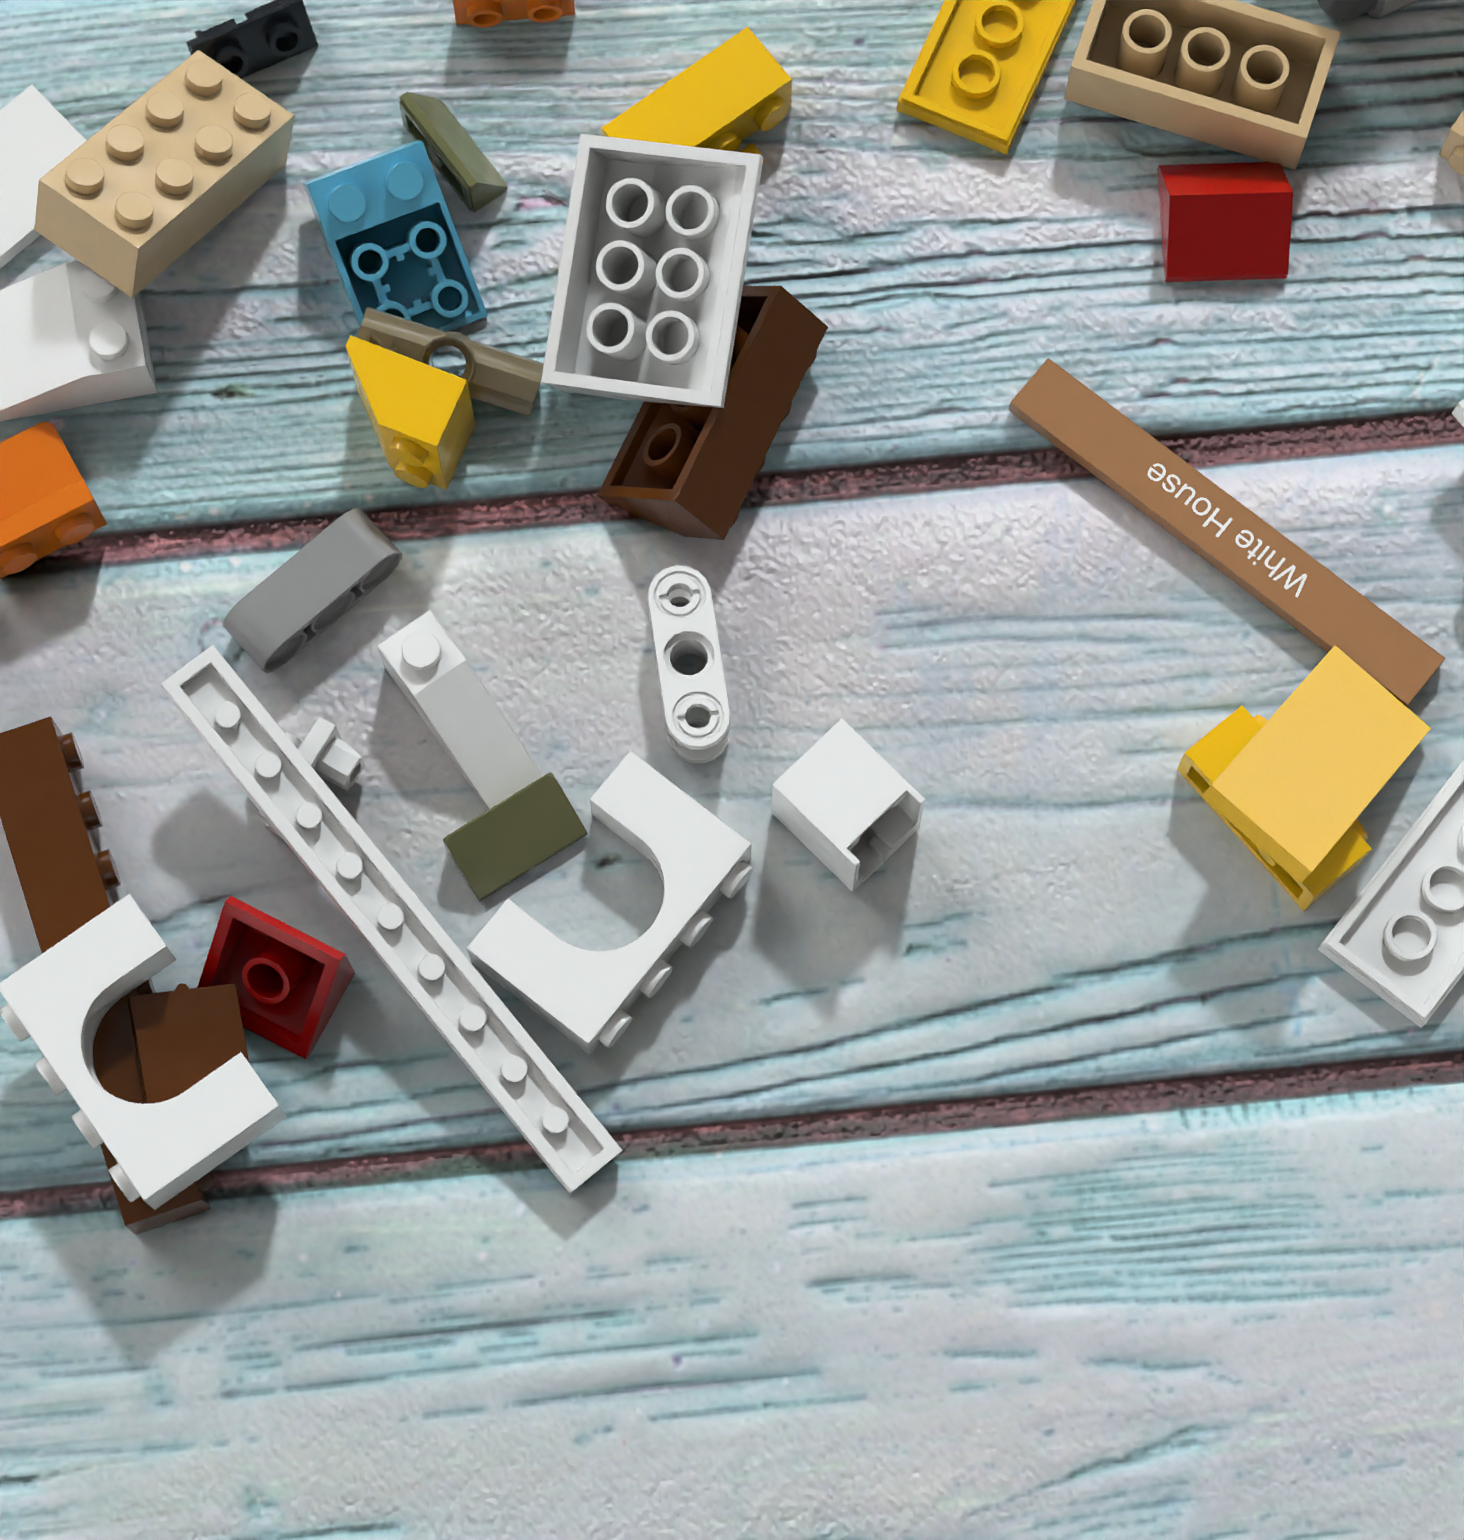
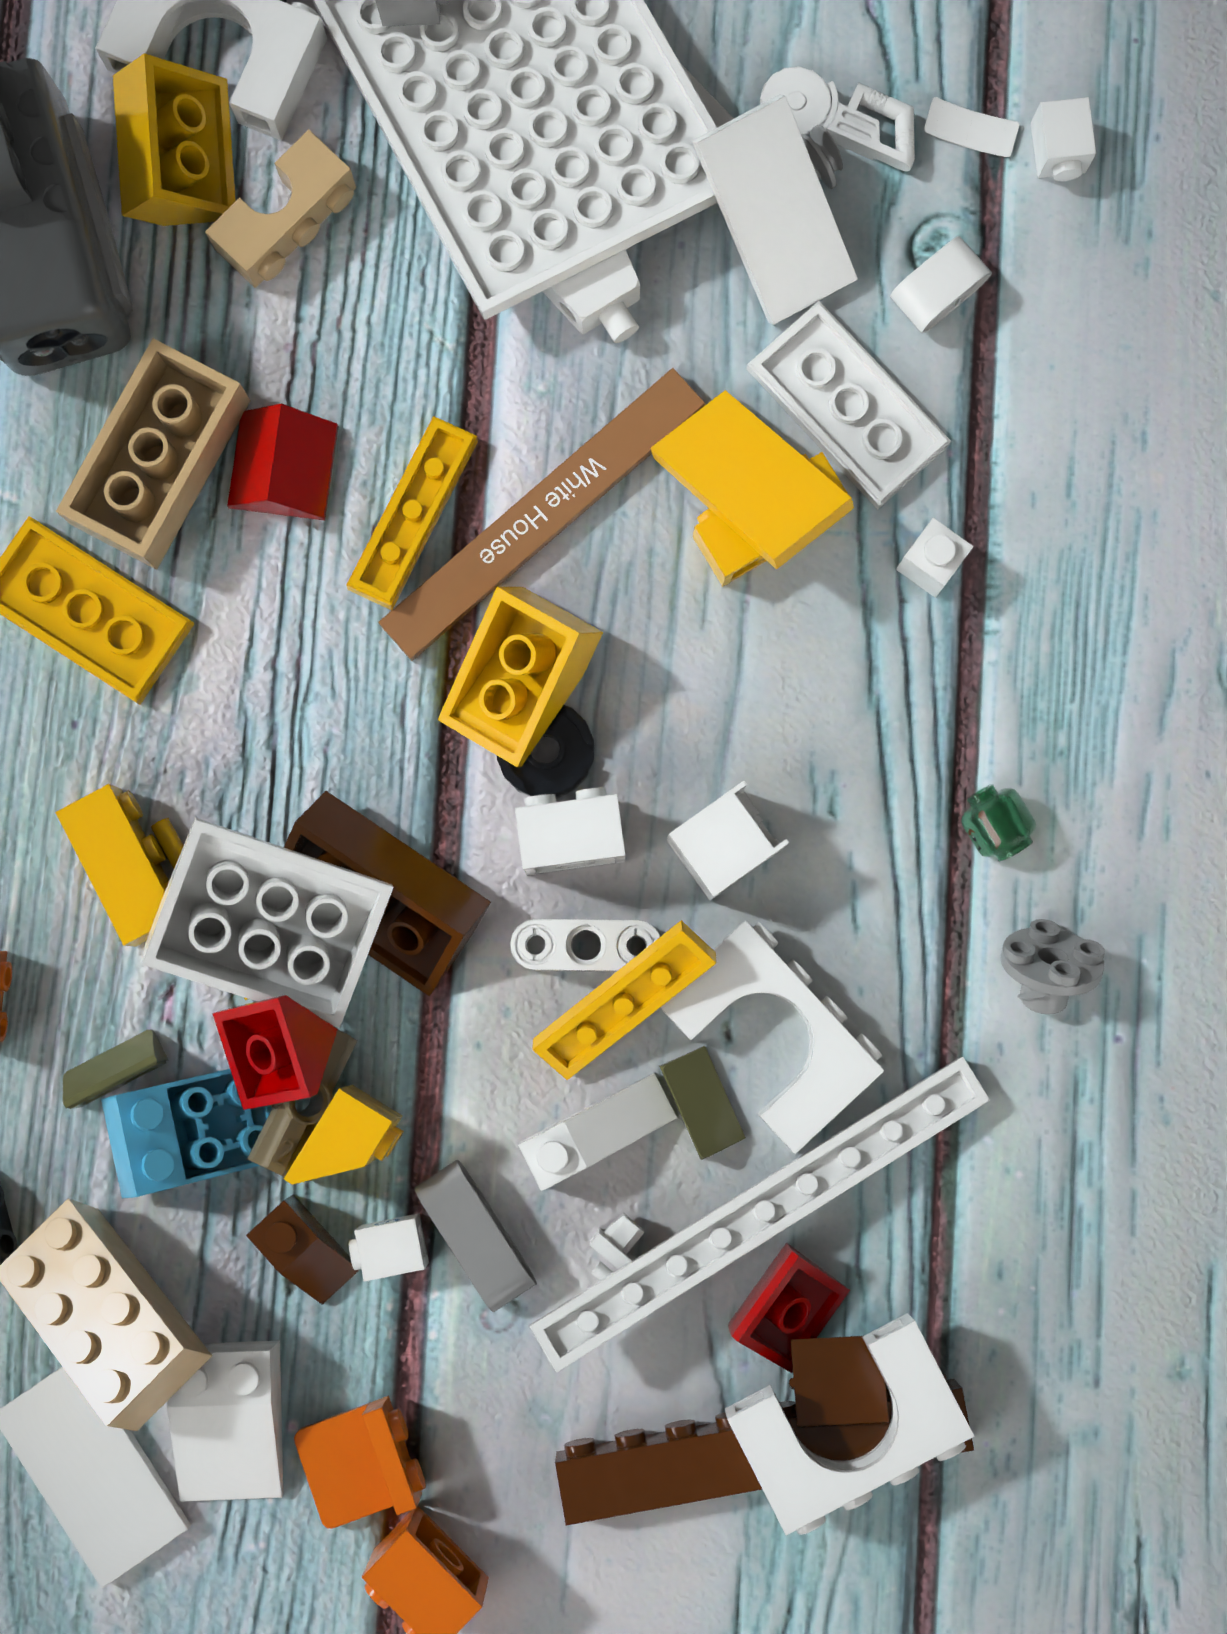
camera: 80 degrees left, 10 degrees up
(269, 393) = (302, 1250): none -> reddish brown slope
(285, 492) = (389, 1247): none -> white brick
(504, 311) = (275, 1050): none -> red slope
(627, 710) = (624, 1000): none -> yellow plate
(757, 1241) = (1051, 965): none -> light grey plate
(824, 614) = (570, 832): none -> white brick
(917, 617) = (566, 770): none -> black tile
(933, 1153) = (998, 822): none -> clear green head
(1017, 527) = (518, 673): none -> yellow slope
(1193, 376) = (412, 513): none -> yellow tile
(1264, 1018) = (934, 557): none -> white brick

